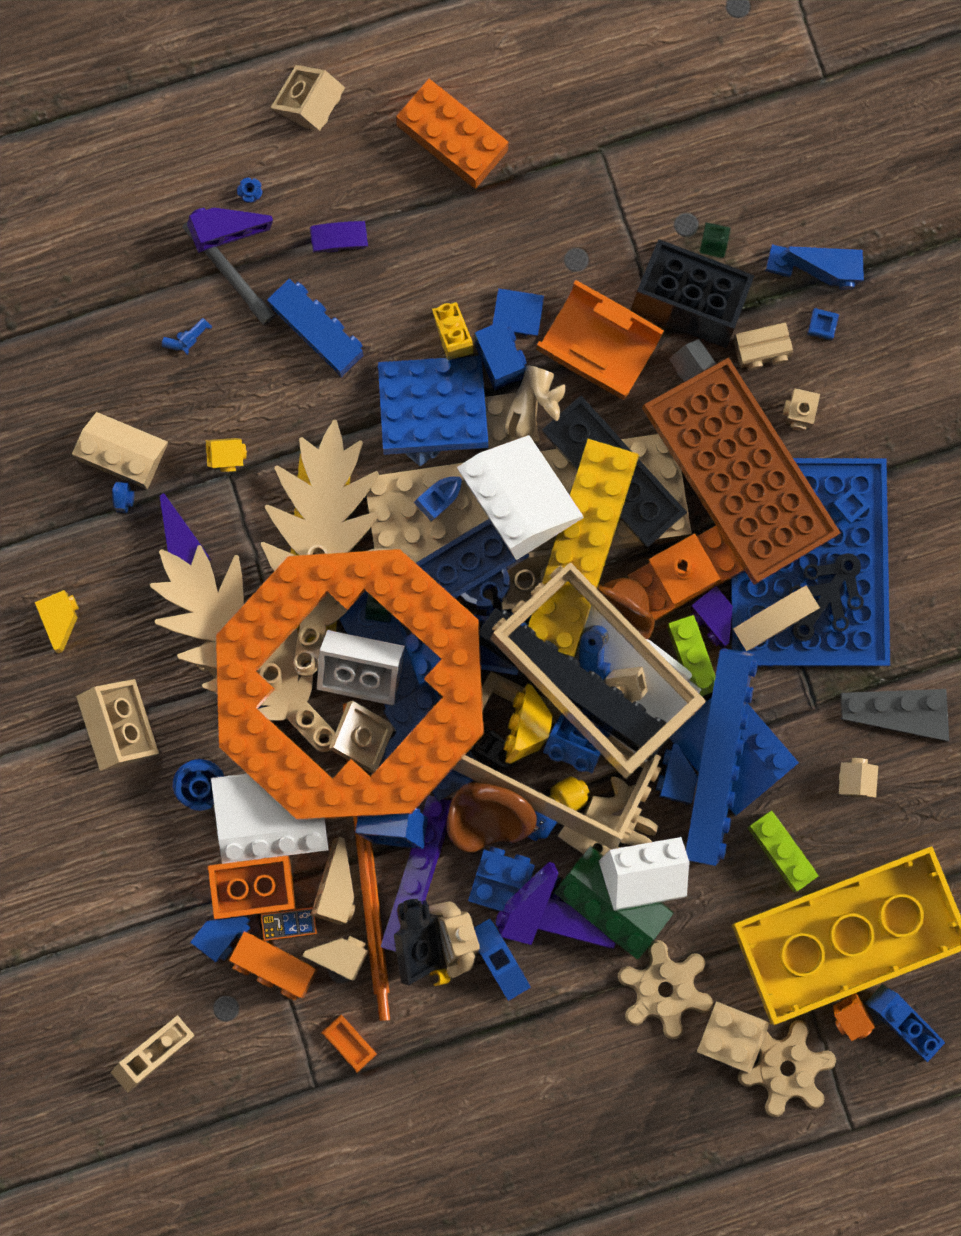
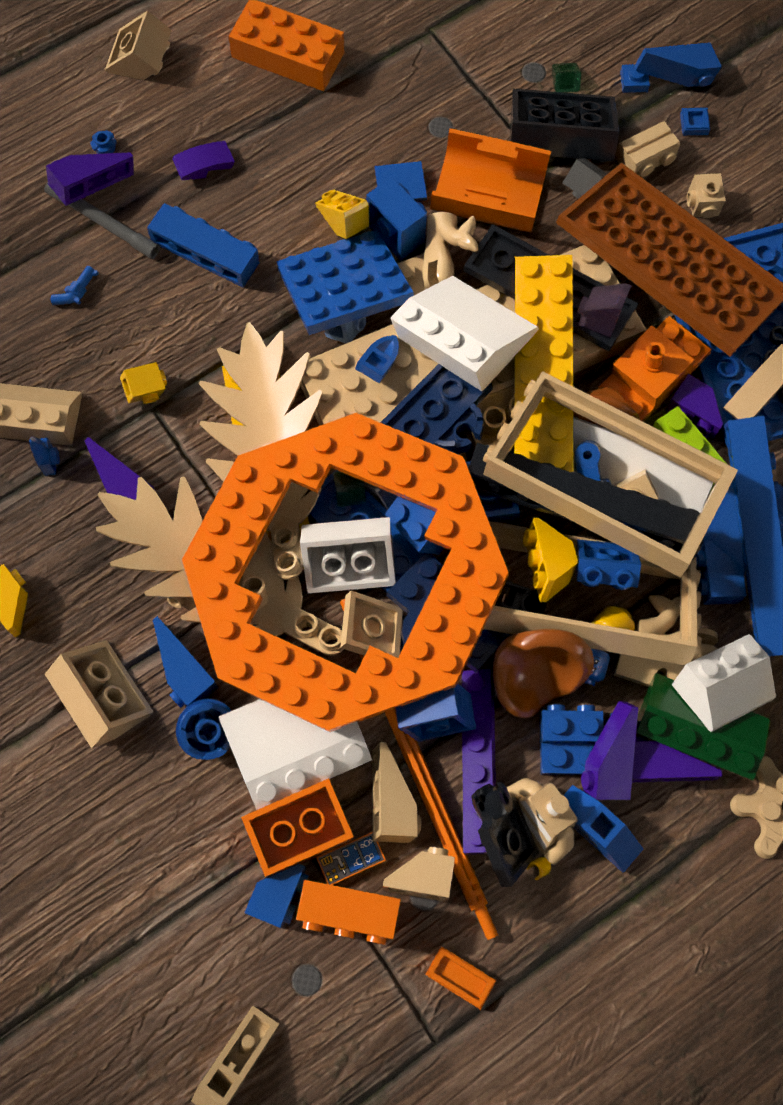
camera: 15 degrees left, 10 degrees down
(192, 728) = (182, 670): none -> blue slope
(647, 513) = (603, 308): none -> slope

